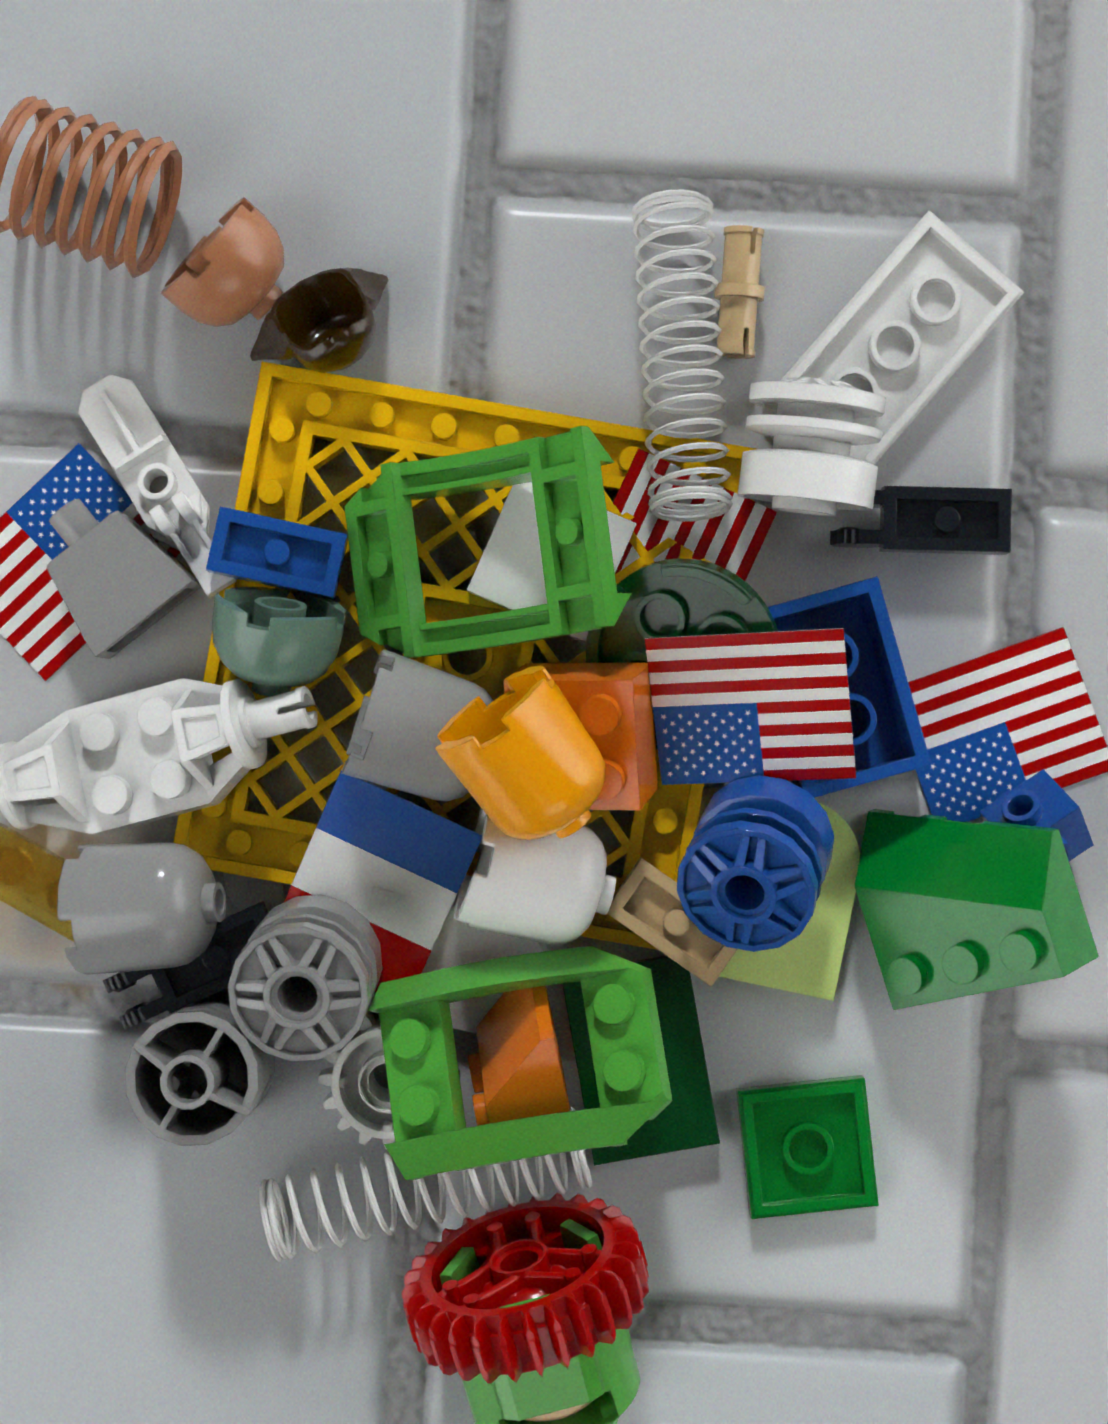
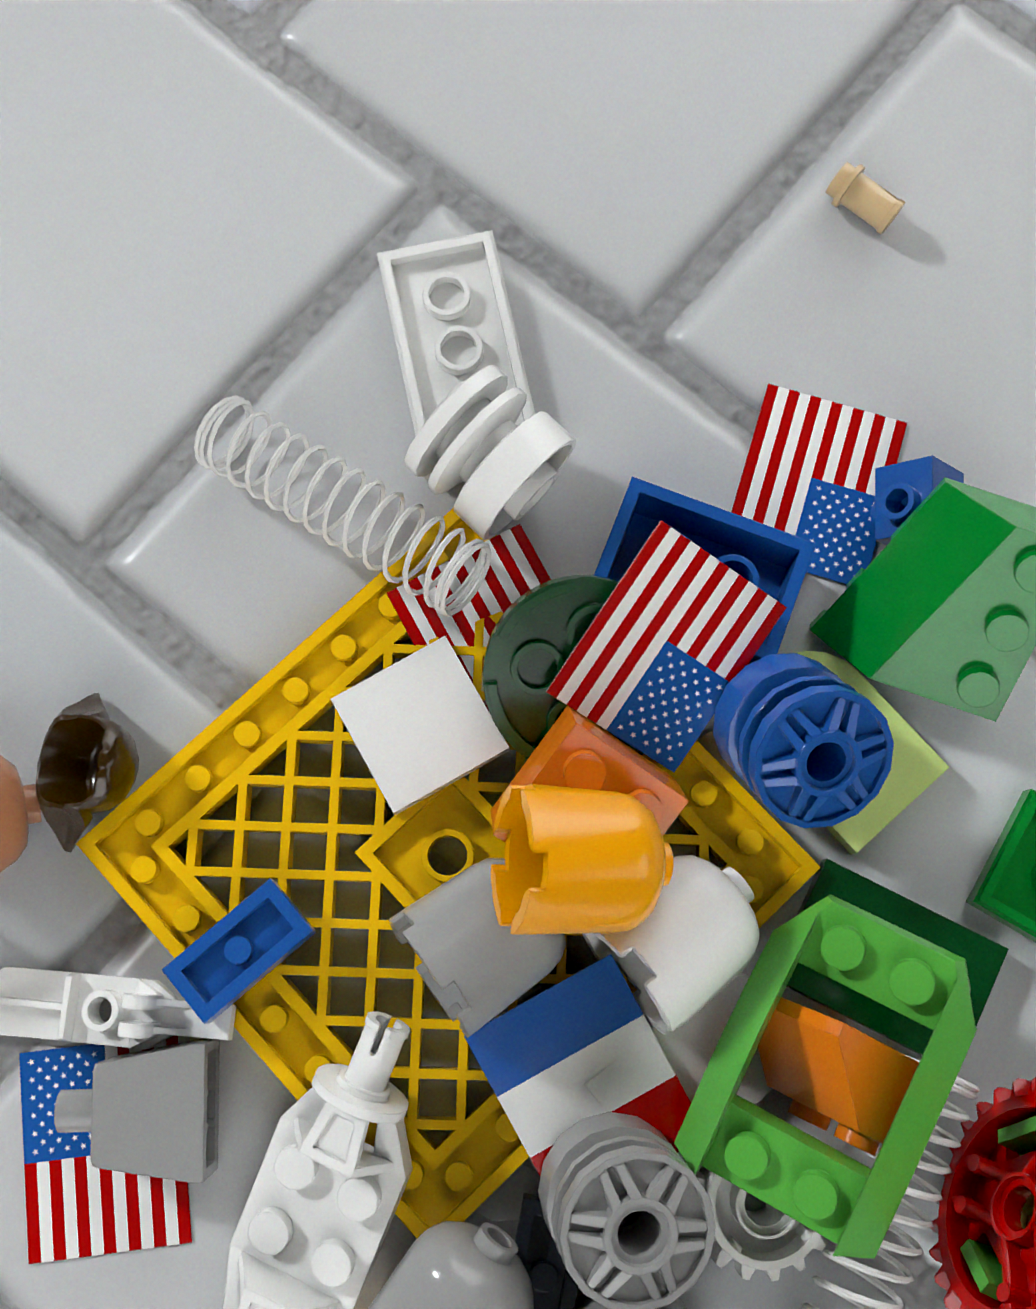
camera: 50 degrees left, 10 degrees down
(276, 638) = (309, 1008): sand green cylinder -> none
(570, 531) = (414, 685): bright green wedge -> none
(652, 909) = (782, 854): tan plate -> none
(739, 291) = (325, 428): tan pin -> none
(936, 521) = (618, 413): black hinge -> none

